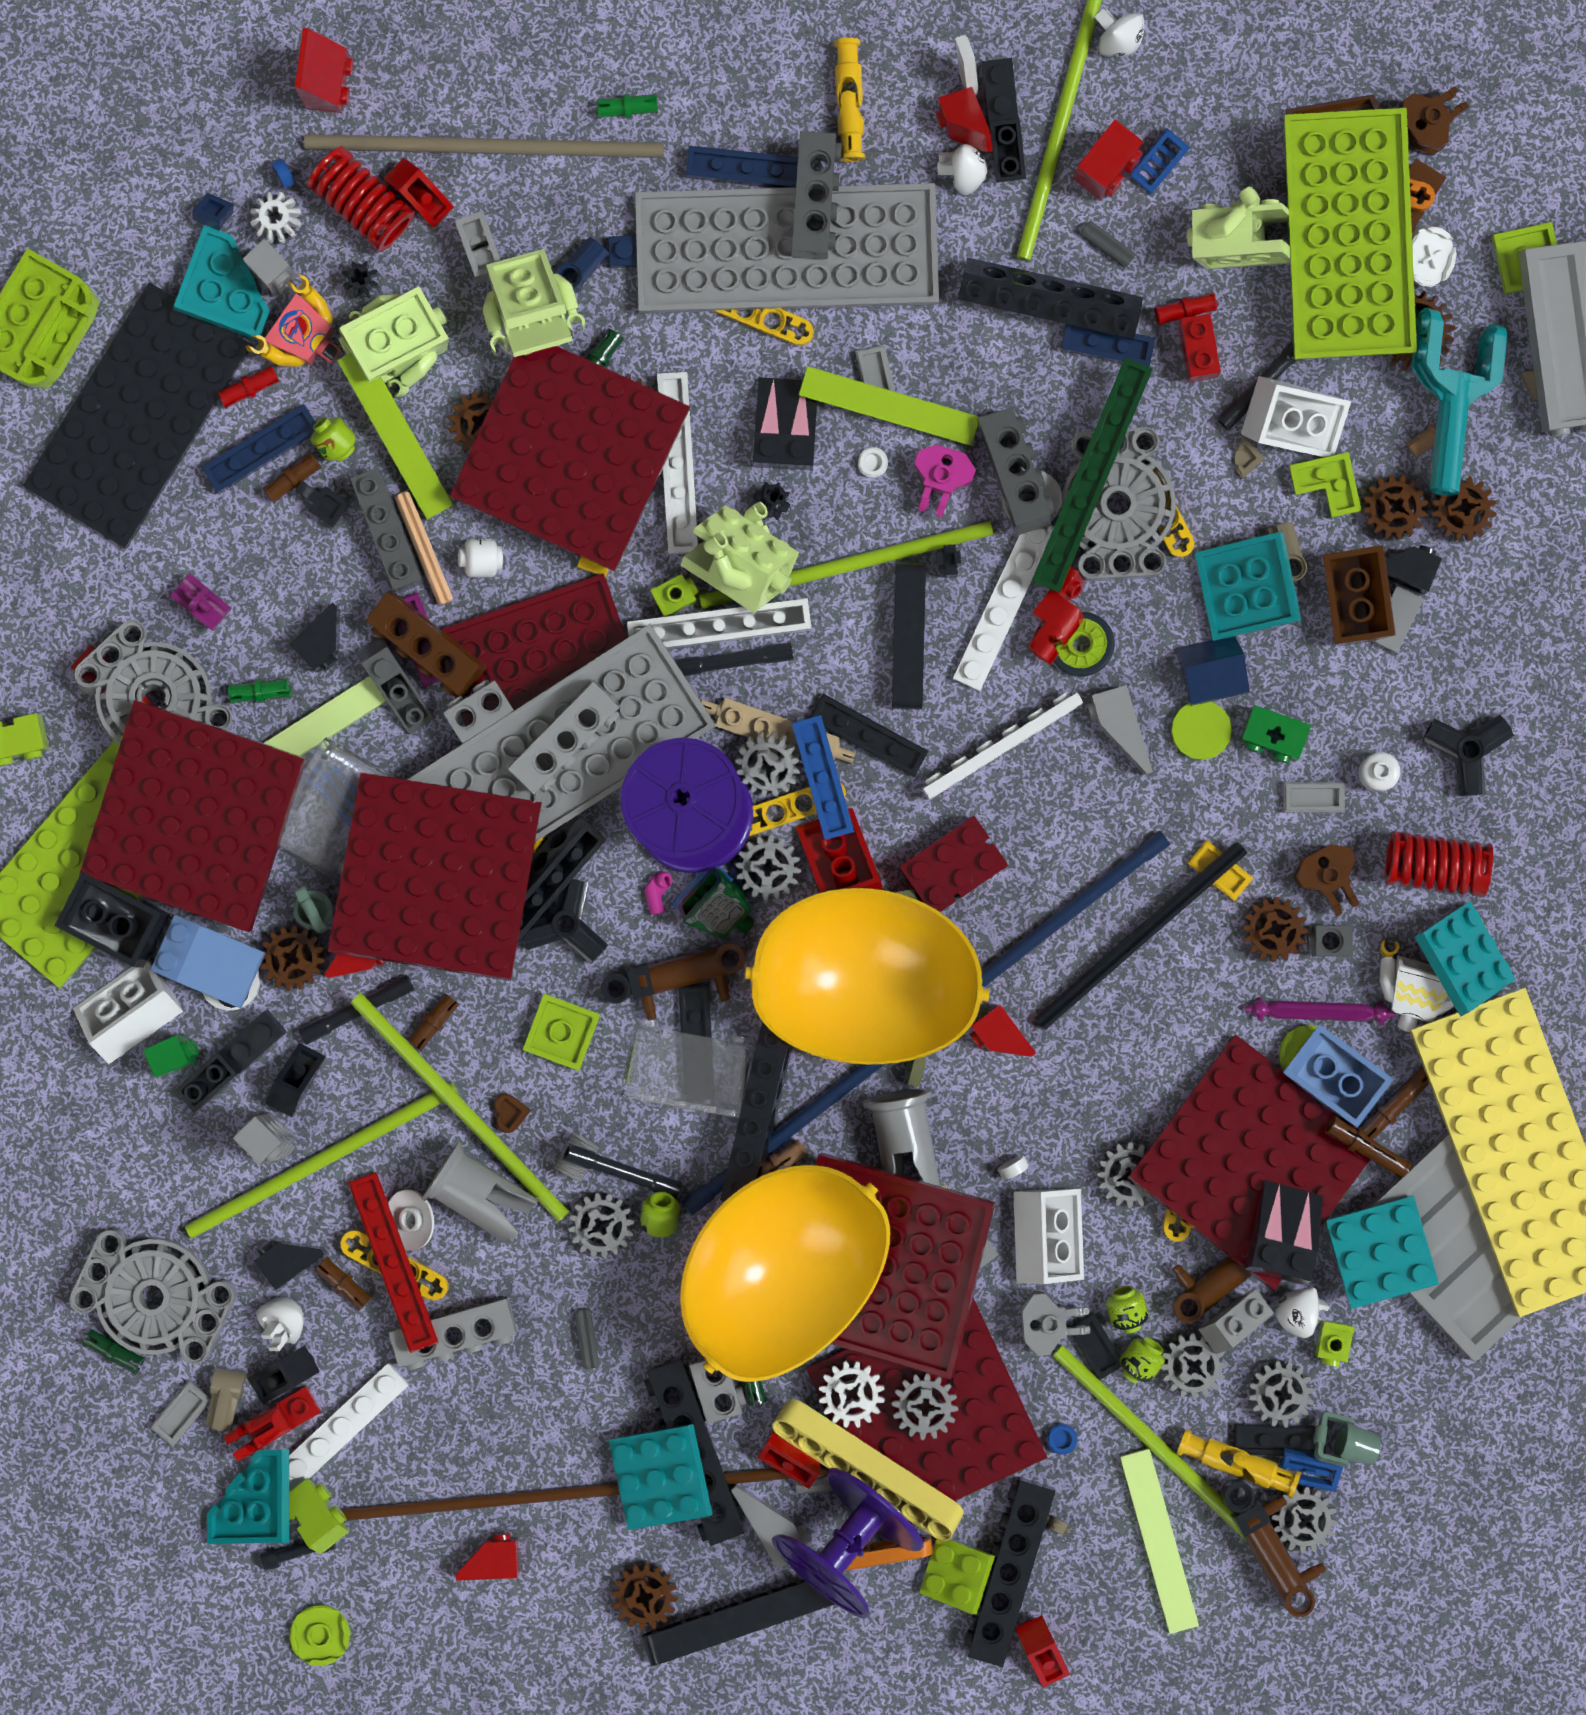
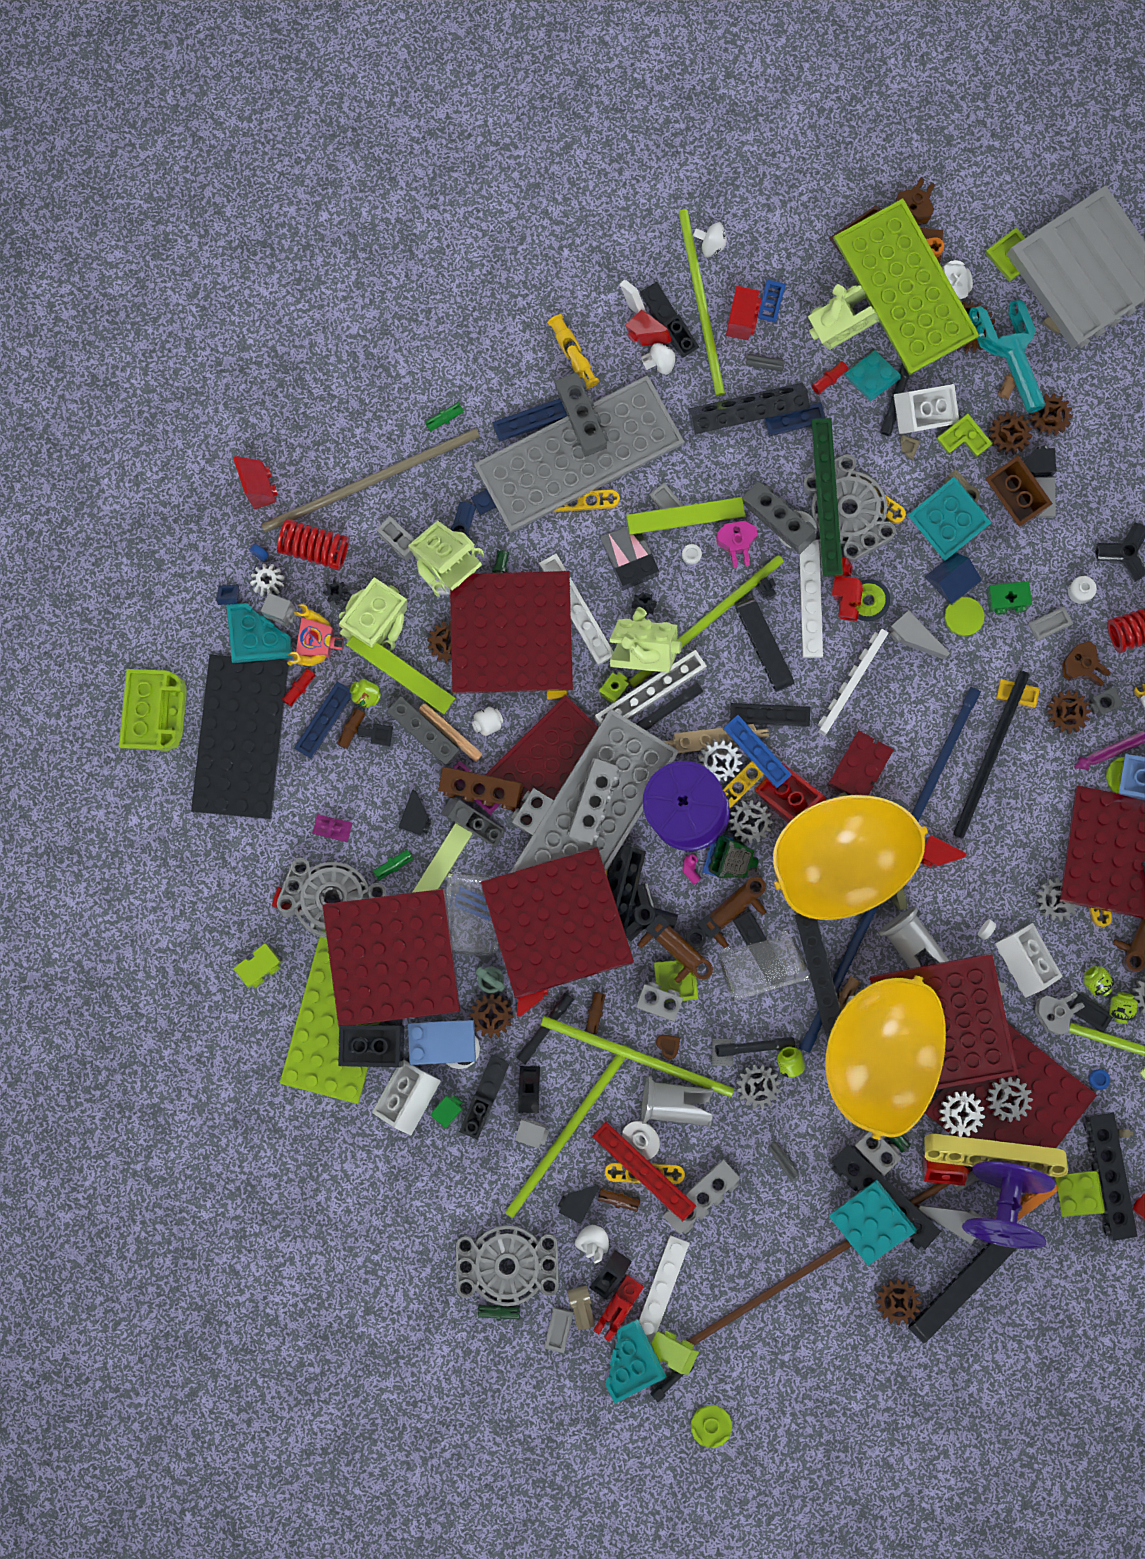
camera: 25 degrees left, 5 degrees down
(418, 192) = (345, 524): red slope -> none
(493, 1560) = (794, 1326): red slope -> none
(517, 1056) = (657, 1008): none -> light grey brick
(579, 978) = (675, 944): none -> reddish brown piece
(1199, 348) = (849, 395): red brick -> none
(1246, 335) = (872, 375): none -> teal plate

